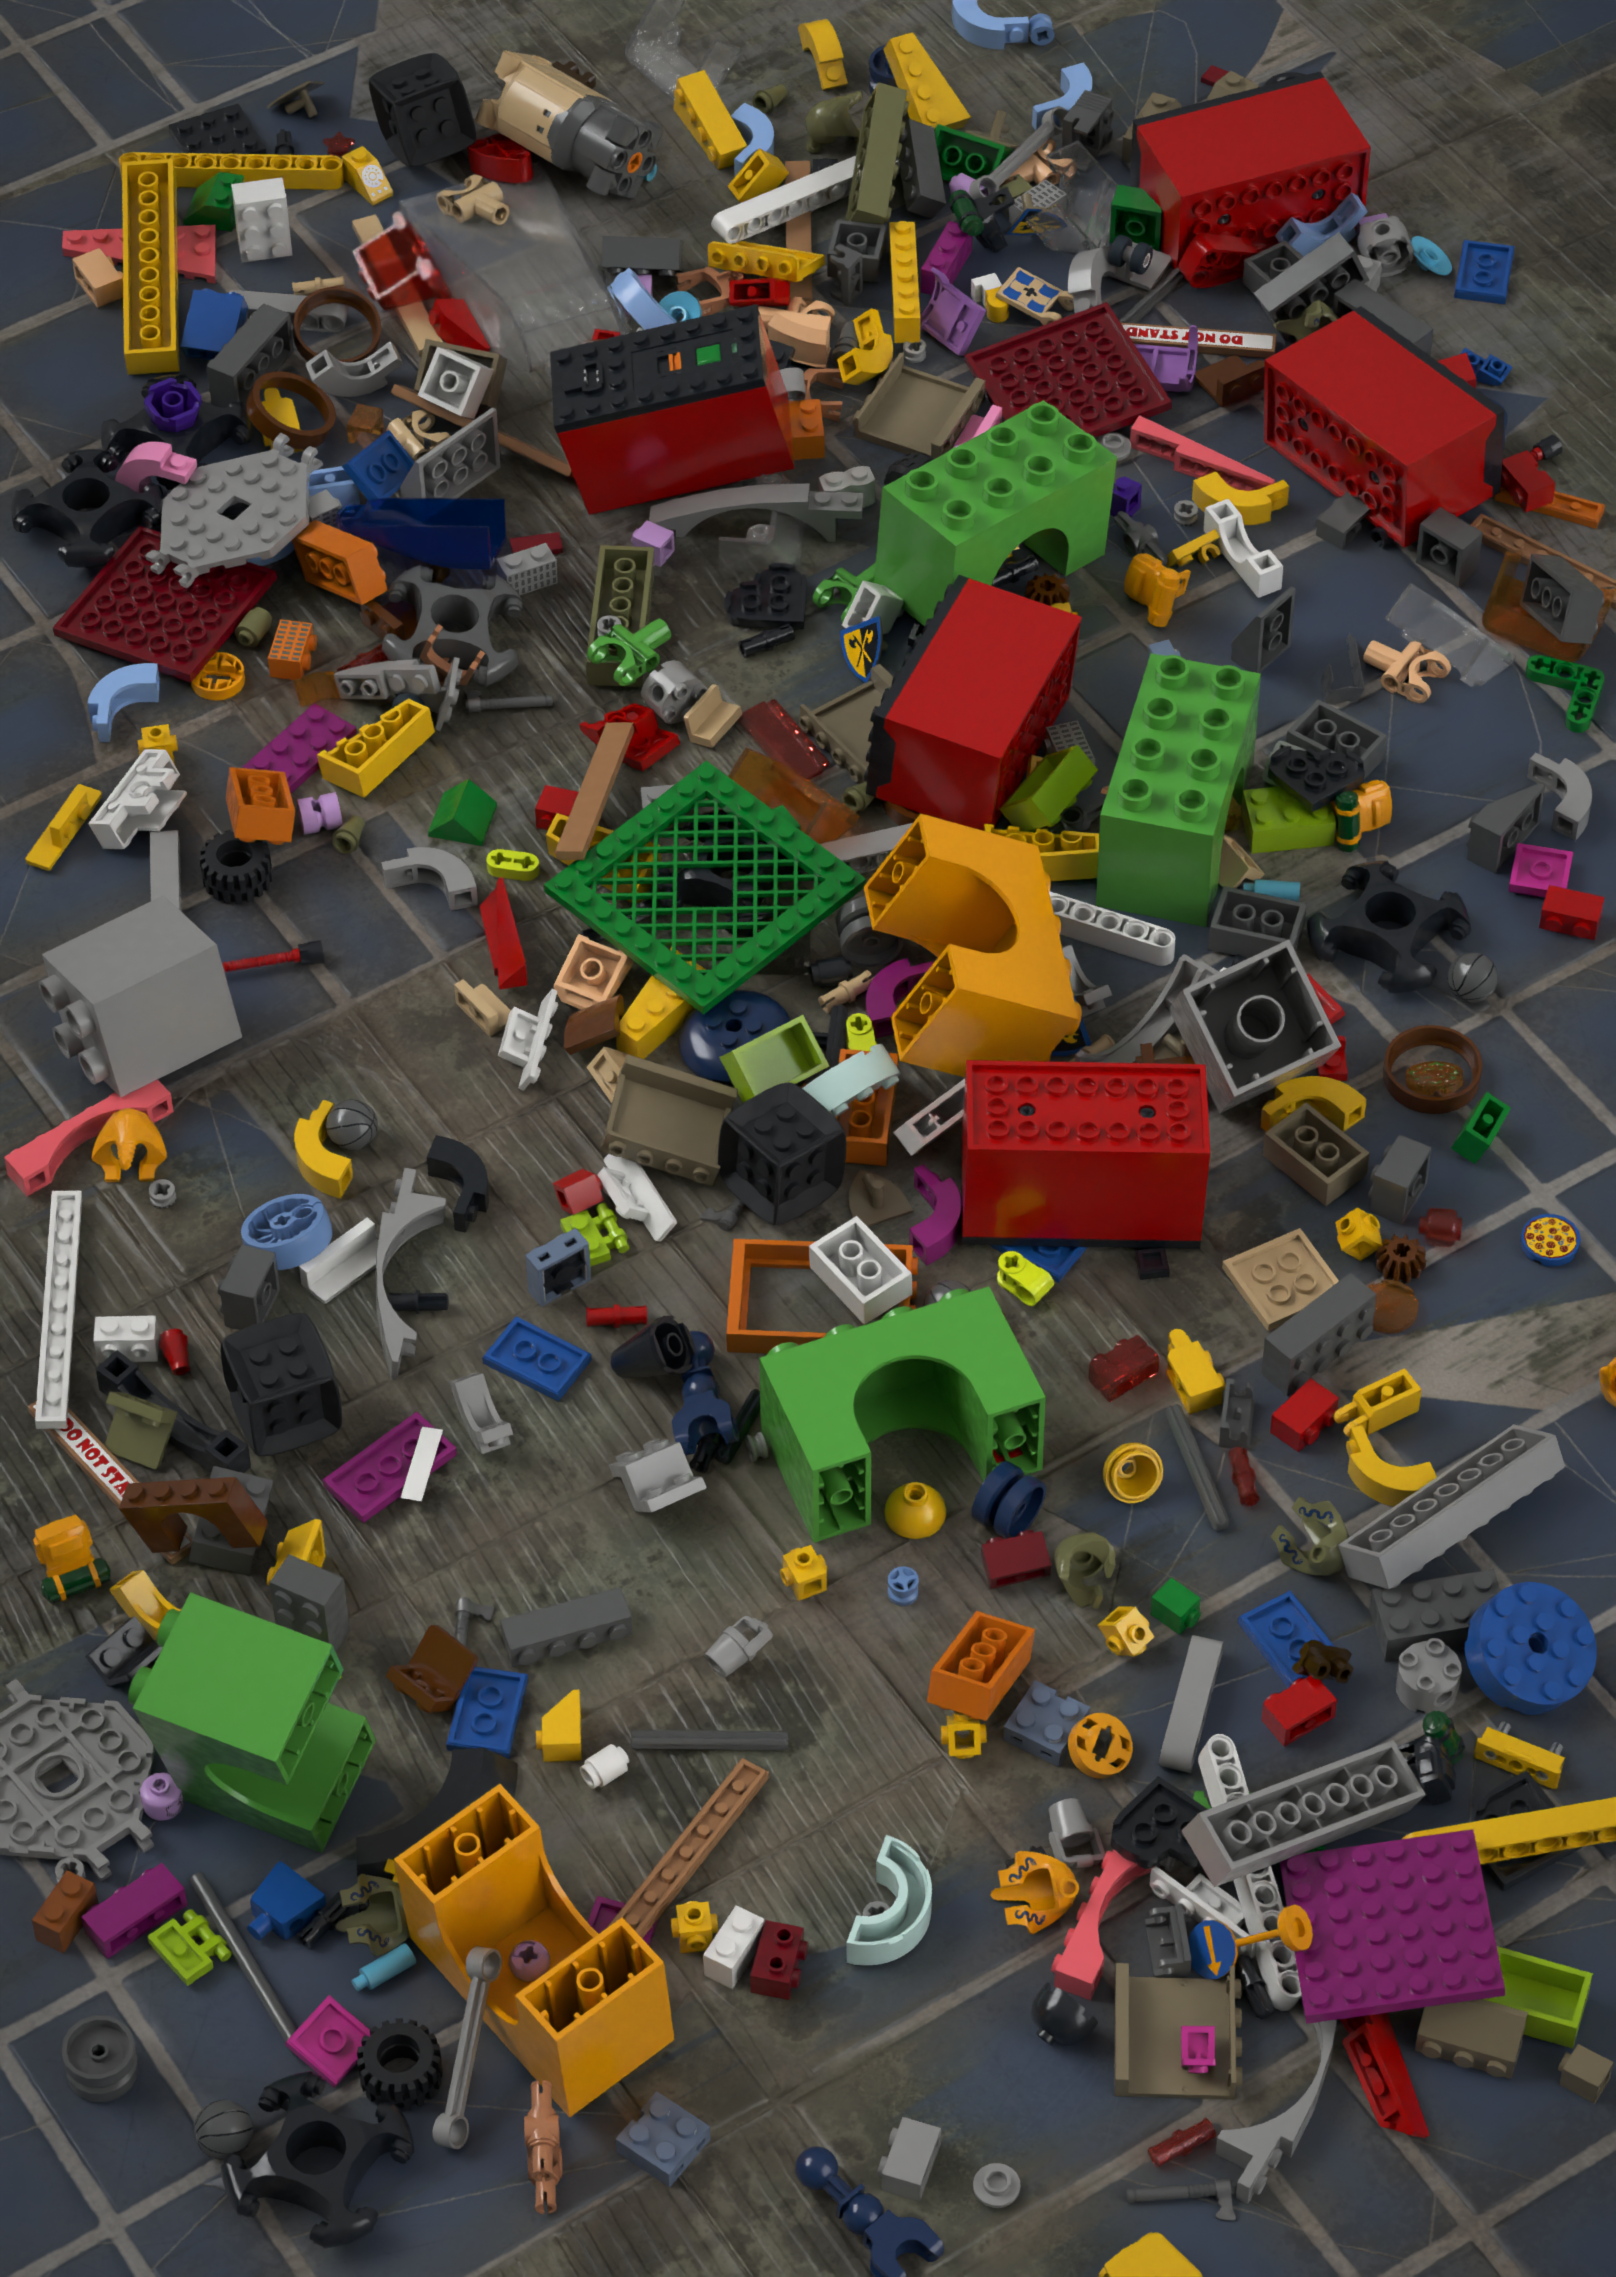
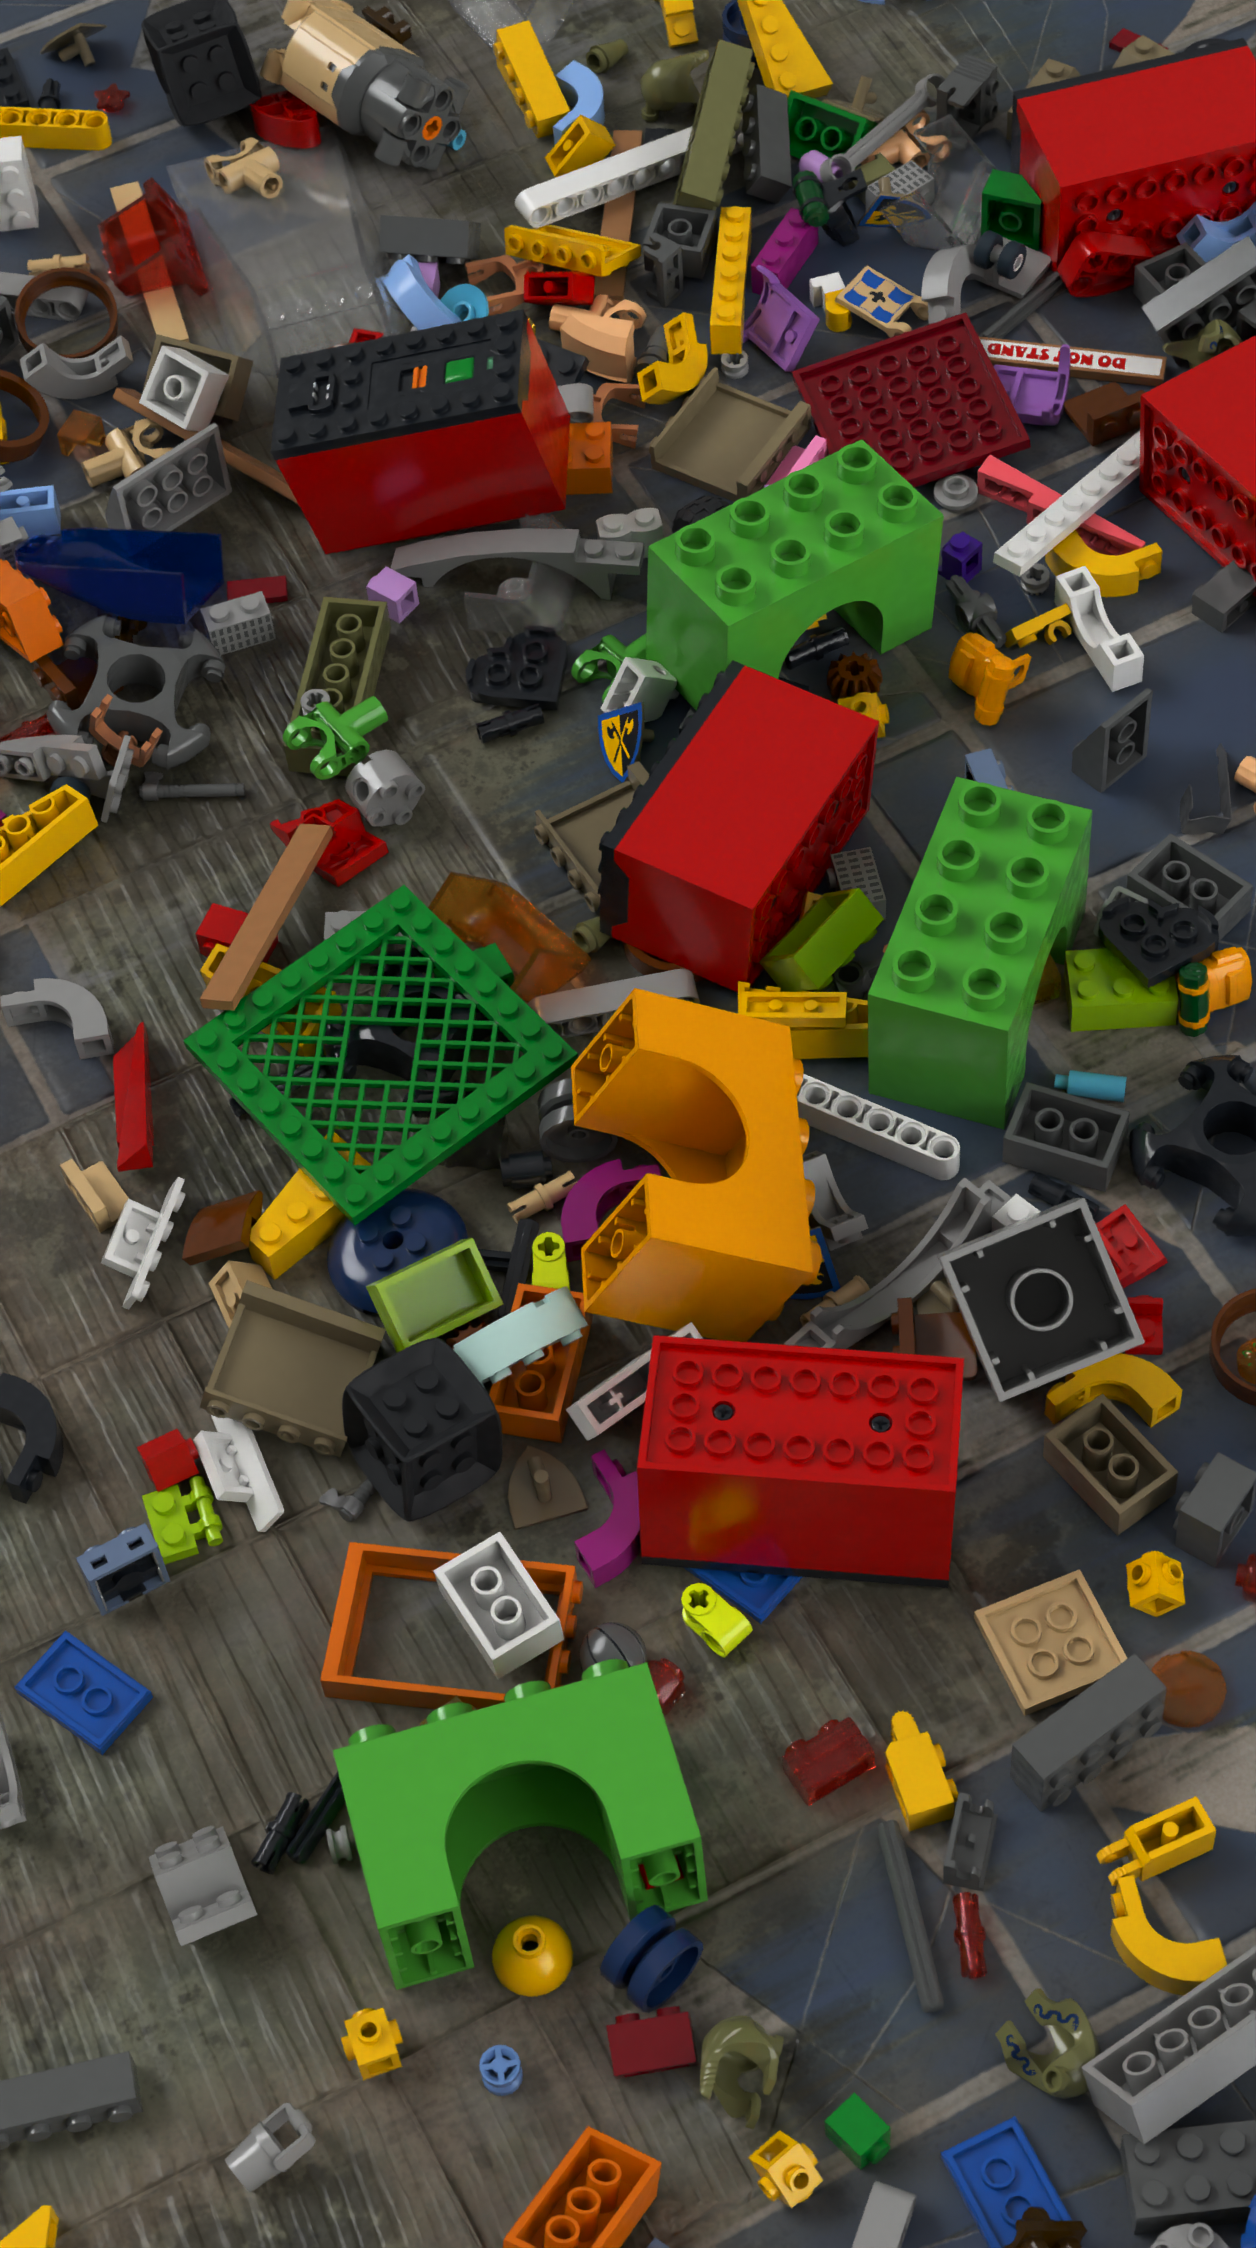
camera: 10 degrees right, 5 degrees up
(366, 175) = (134, 135): yellow slope -> none
(380, 467) = (82, 489): blue tile -> none
(456, 324) = (205, 317): red slope -> none
(463, 814) = (115, 935): green slope -> none
(512, 864) = (163, 1002): neon yellow beam -> none
(591, 973) = (230, 1158): light nougat slope -> none
(616, 1316) = (190, 1638): red pin -> none
(657, 1350) = (227, 1702): black cone -> none
(702, 1409) = (272, 1791): dark blue piece -> none
(710, 718) = (427, 822): tan panel -> none
(783, 738) = (513, 852): clear red windscreen -> none
(1047, 838) = (796, 1008): none -> yellow plate
(1073, 83) = (958, 42): light blue arch -> none
(1141, 1476) = (822, 1933): yellow piece -> none
(1152, 1263) = (884, 1605): black tile -> none
(1212, 454) = (1071, 509): none -> white plate
(1236, 864) = (1048, 1047): tan panel -> none
(1304, 1415) = (1059, 1849): red brick -> none
(1401, 1259) = (1211, 1636): reddish brown gear -> none

